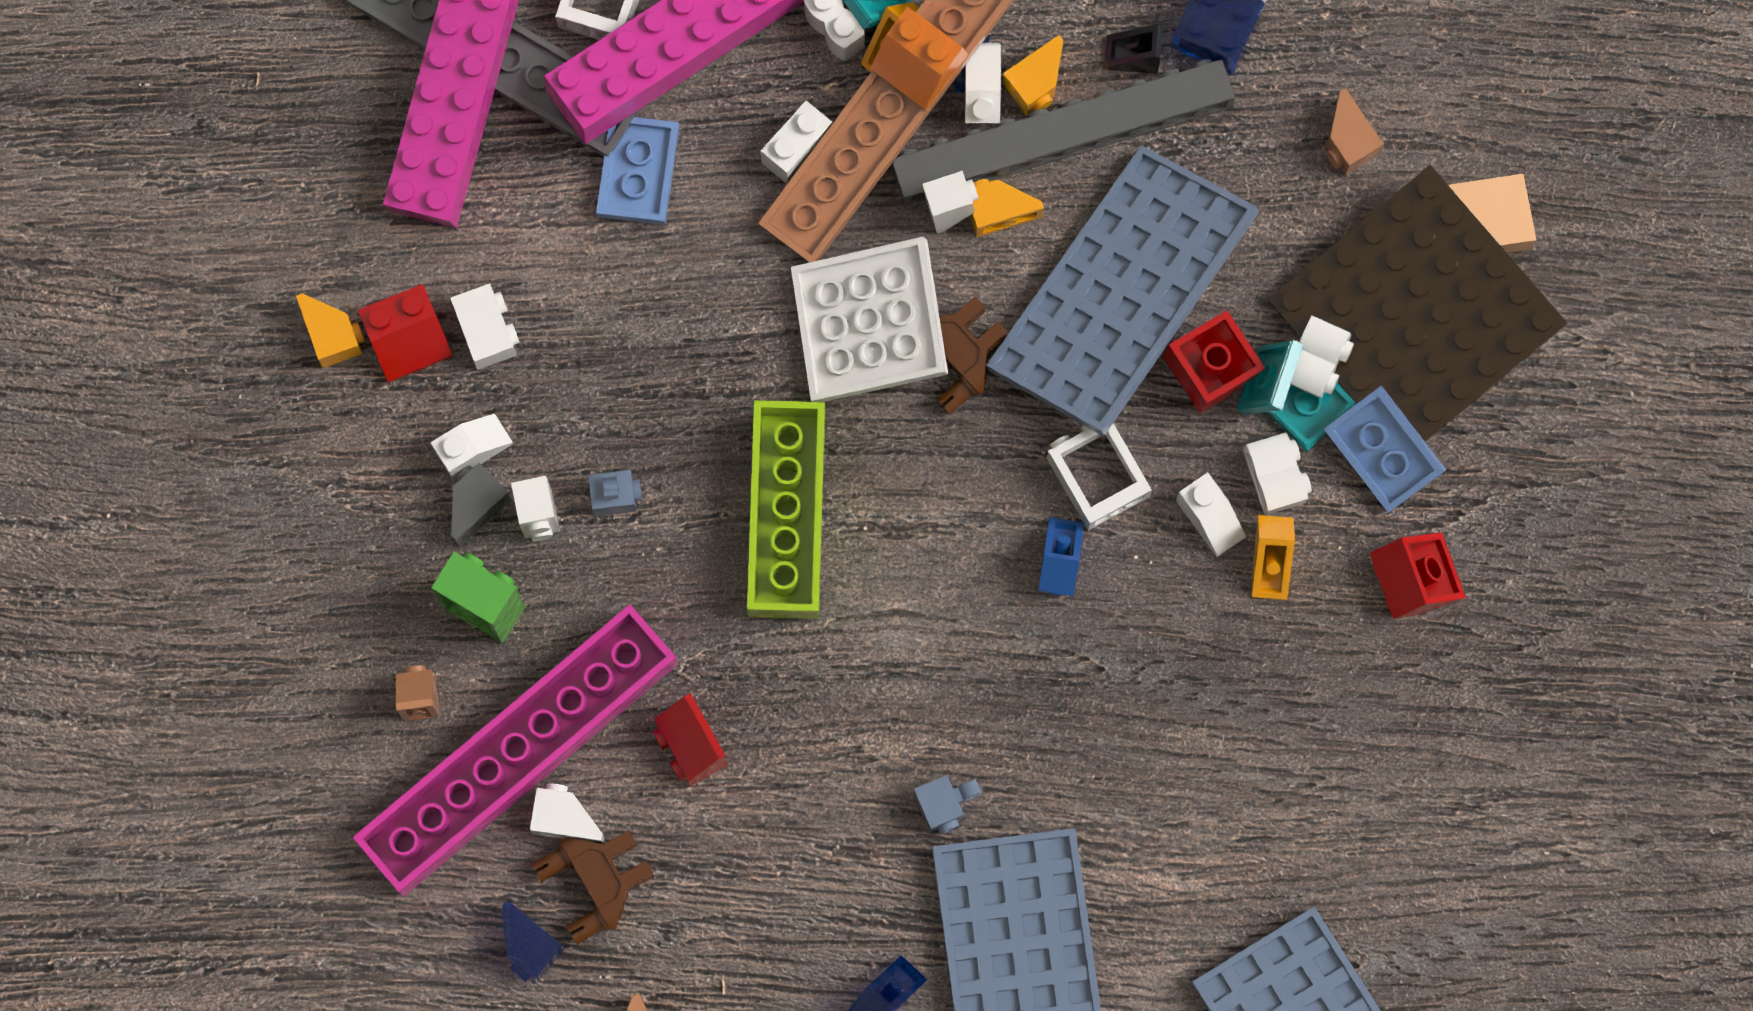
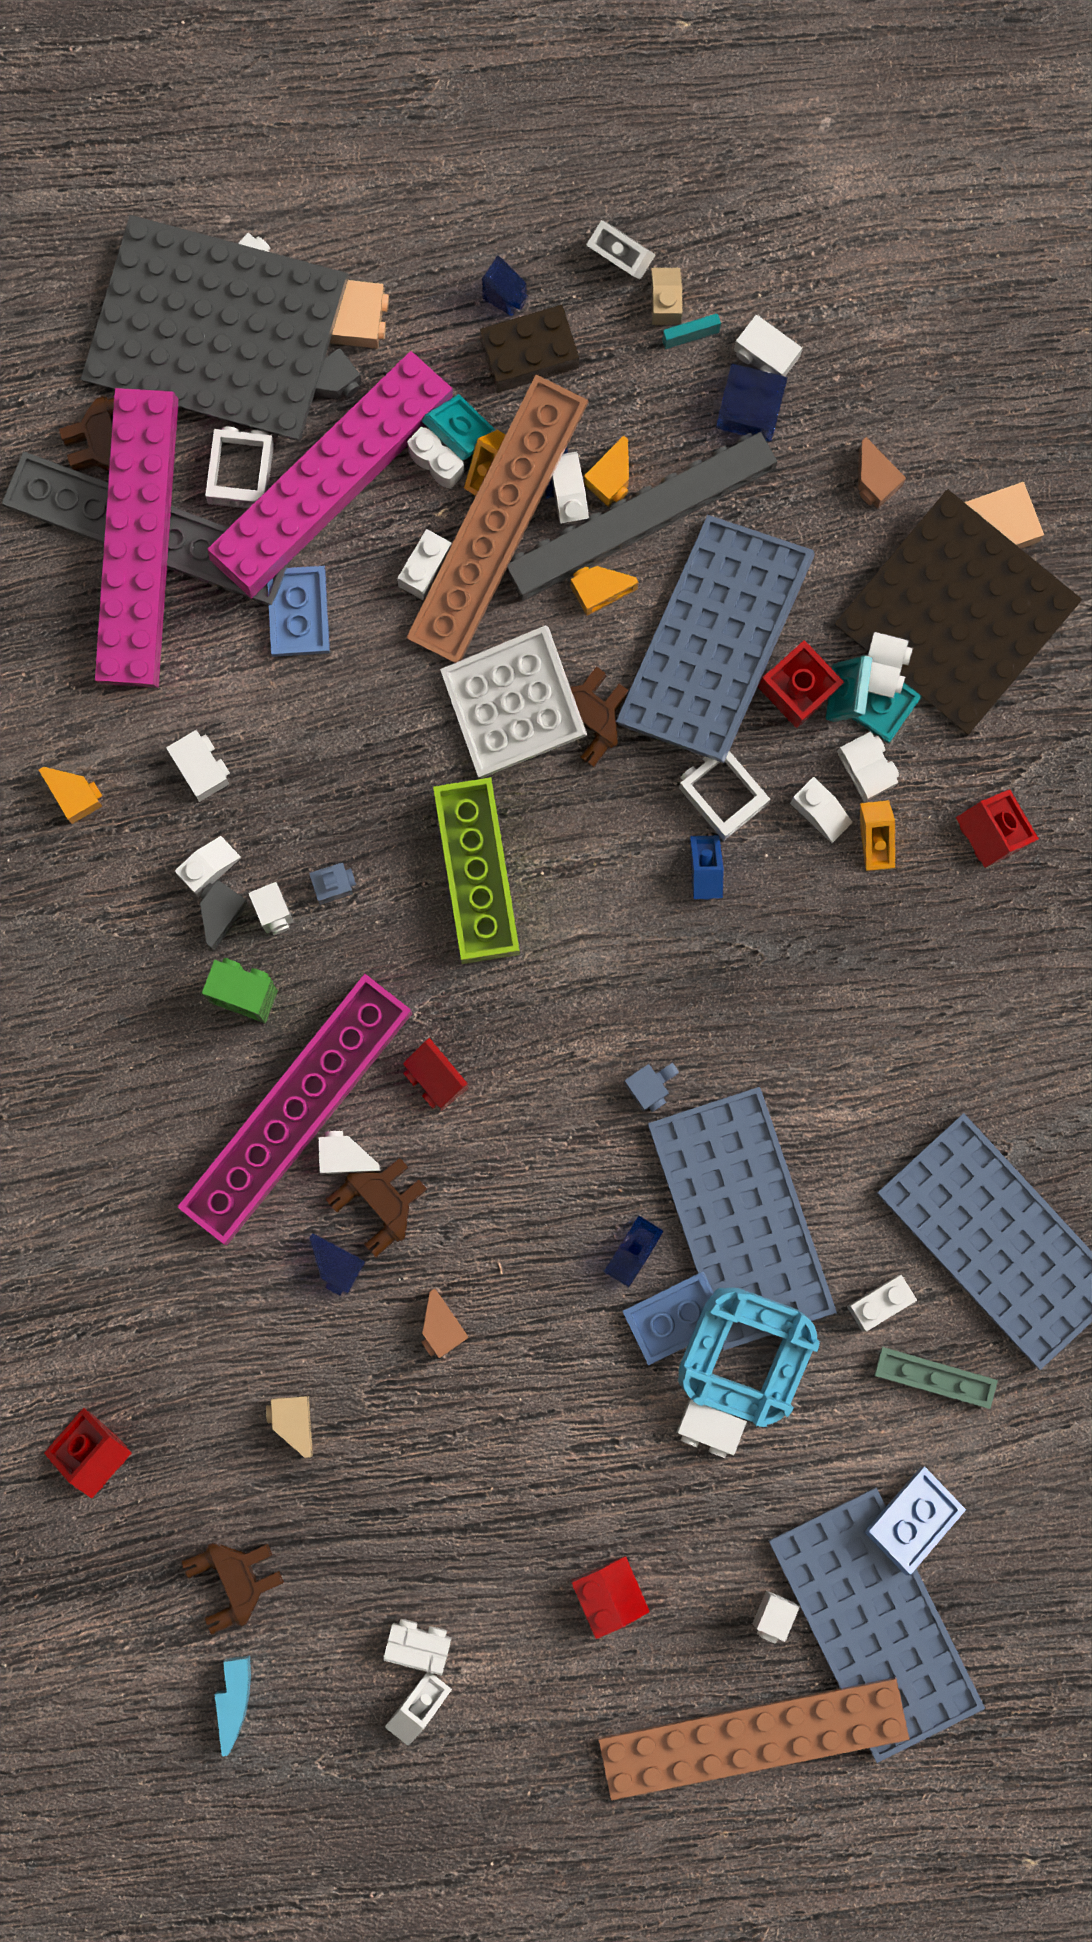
camera: 15 degrees left, 5 degrees up
(405, 333) = (134, 783): red slope -> none
(417, 694) = (204, 1078): nougat slope -> none
(917, 58) = (513, 478): orange slope -> none
(950, 200) = (560, 590): white slope -> none
(1135, 50) = (687, 436): black slope -> none
(1384, 449) = (952, 730): medium blue plate -> none

